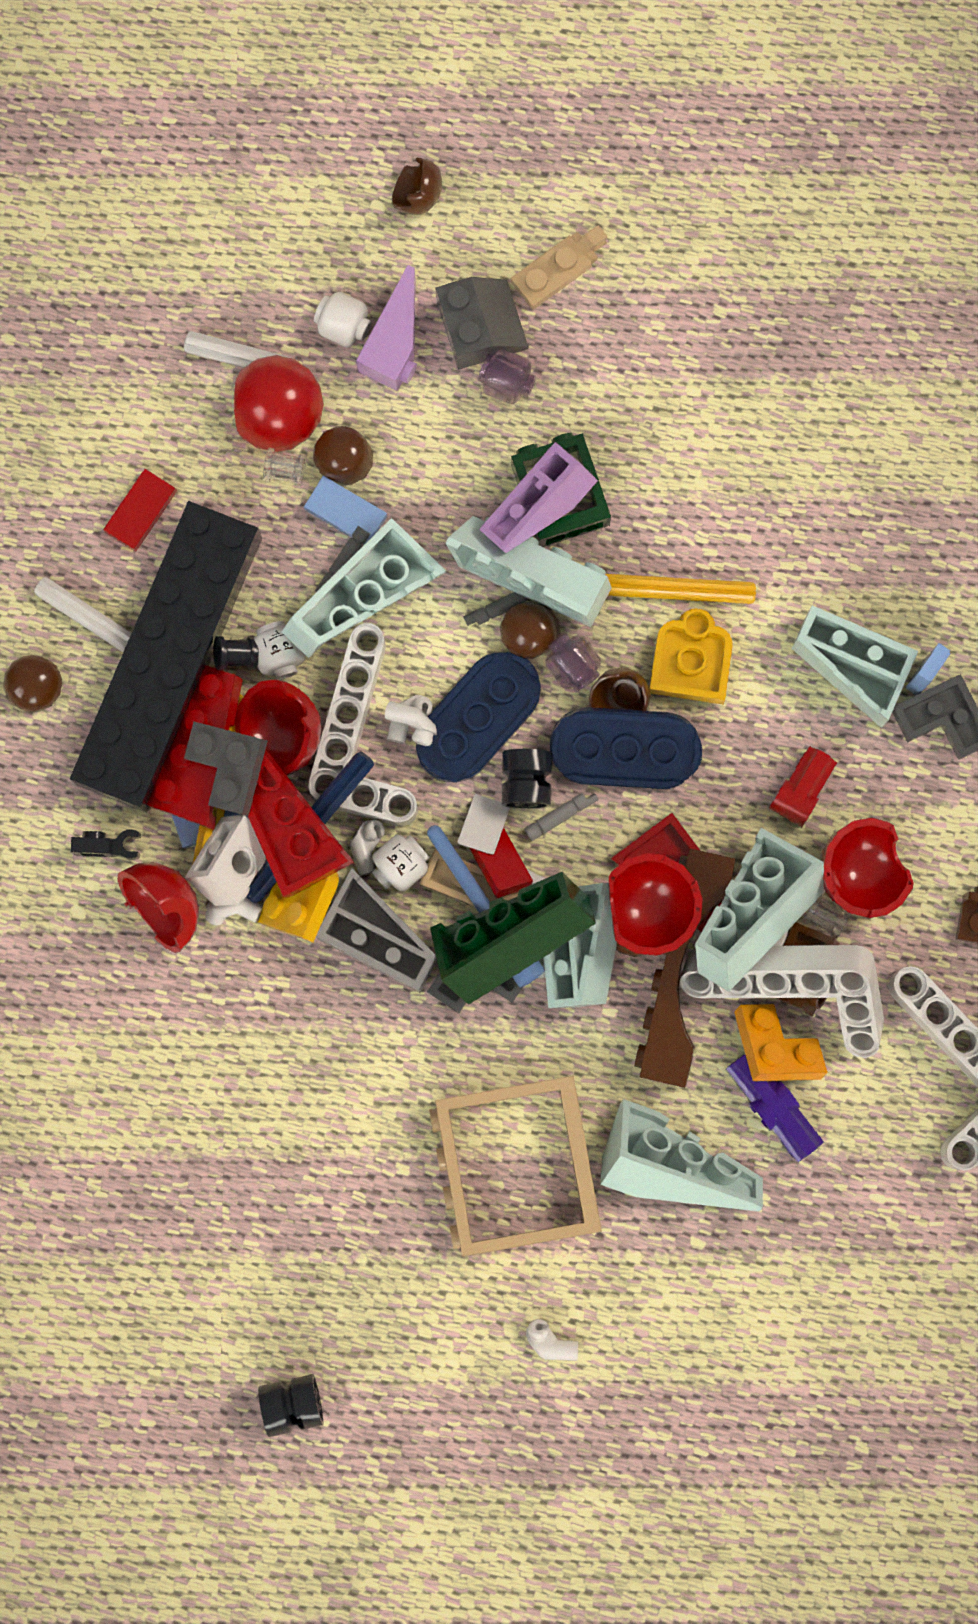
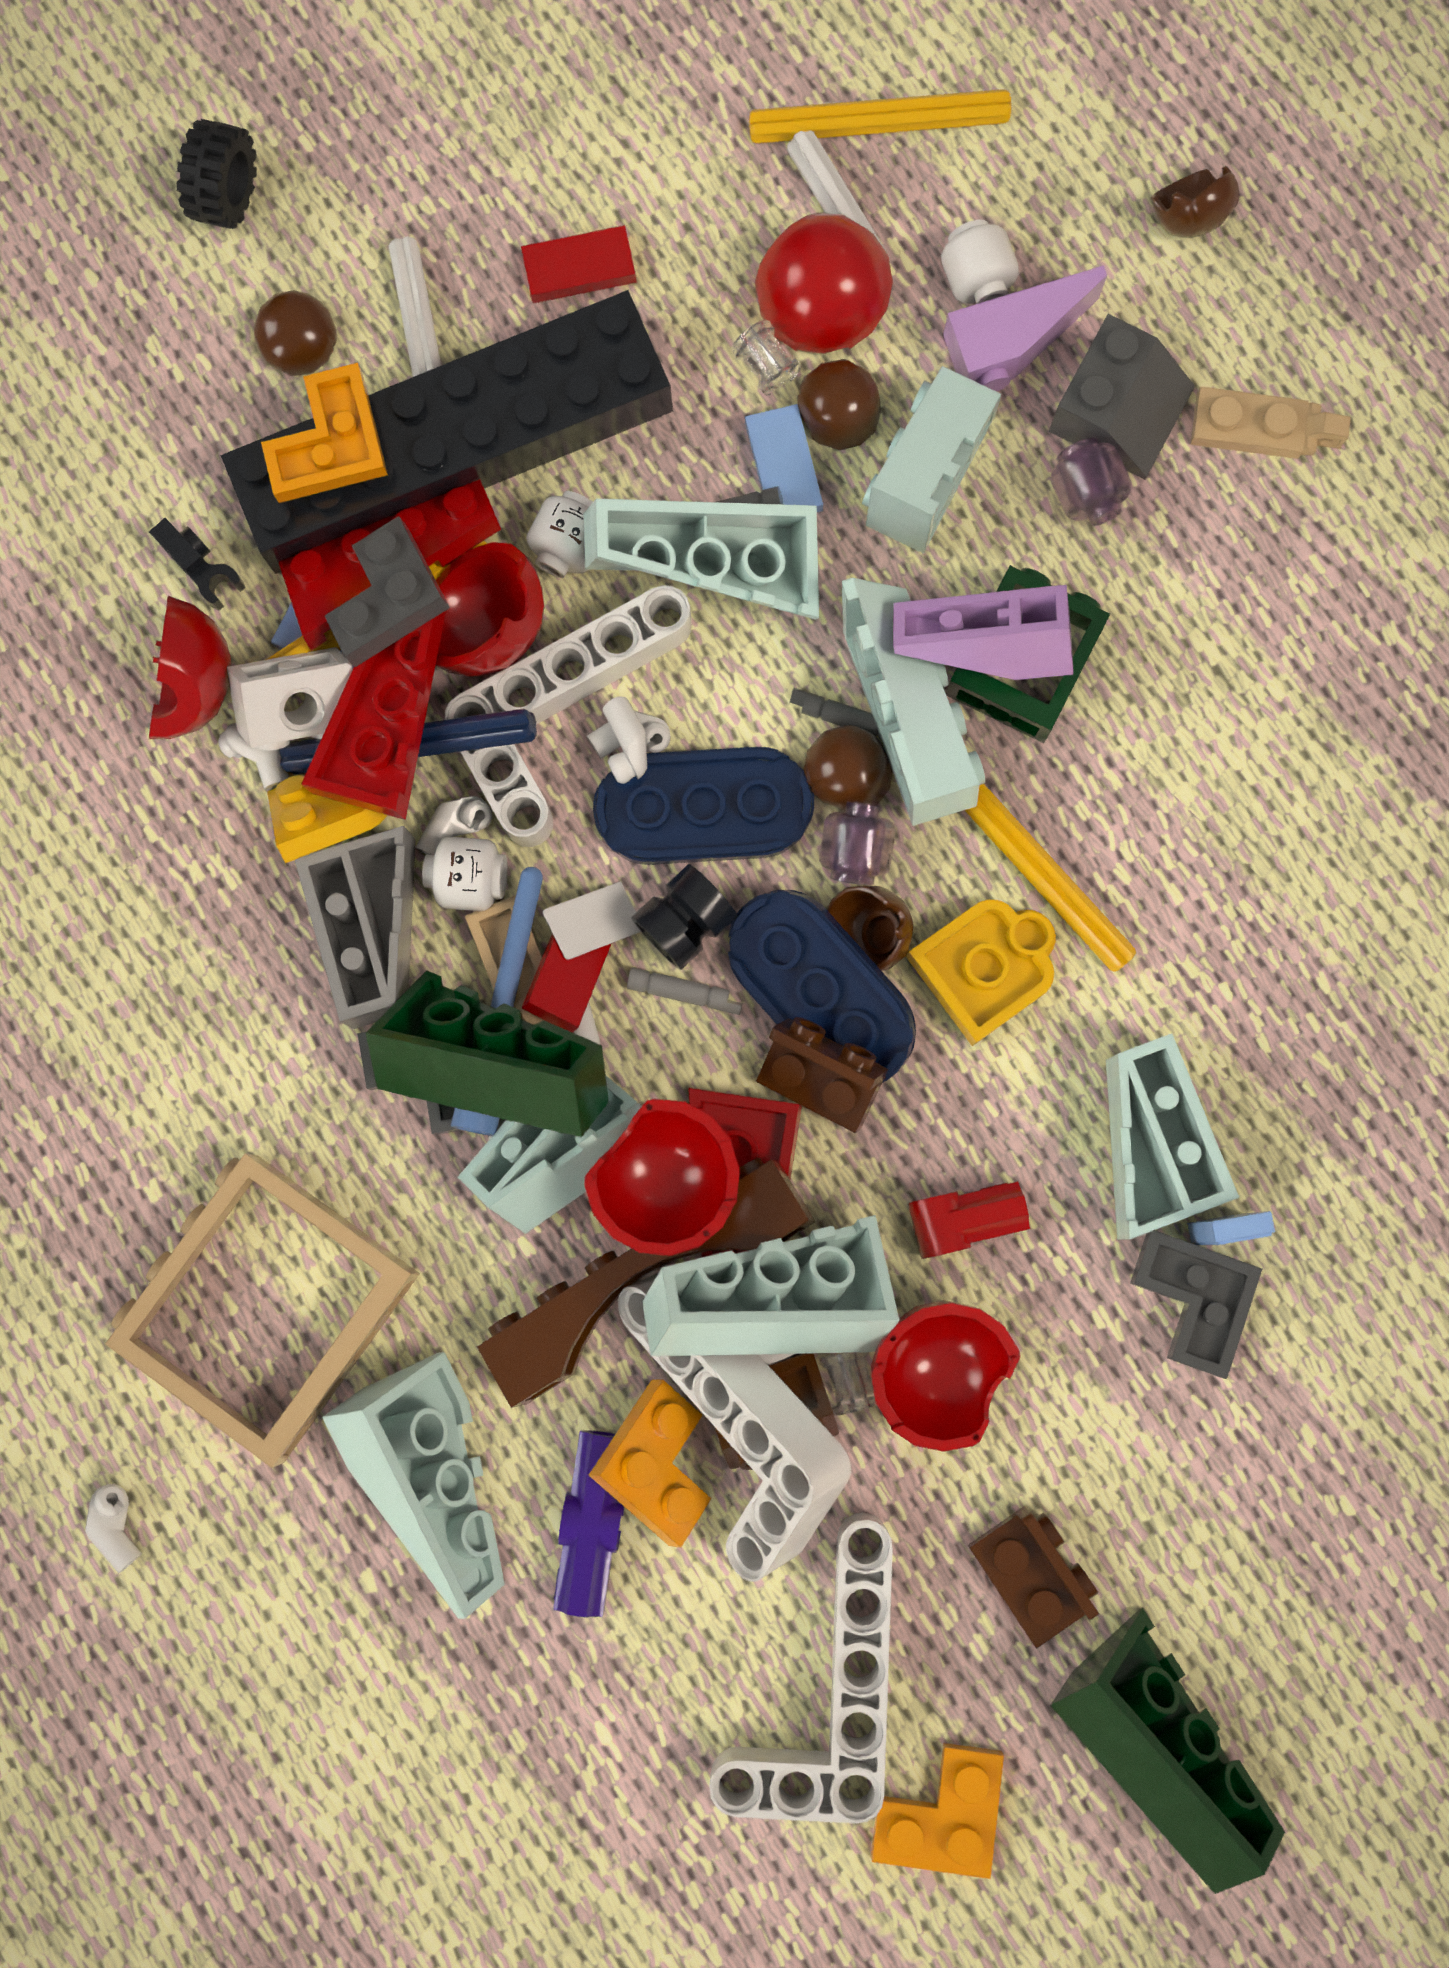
camera: 50 degrees right, 0 degrees up
(132, 716) = (339, 449): none -> light orange plate
(215, 291) = (881, 115): none -> yellow axle
(235, 652) = (519, 493): black bush -> none
(417, 440) = (929, 458): none -> light aqua wedge
(667, 787) = (821, 1073): none -> reddish brown bracket

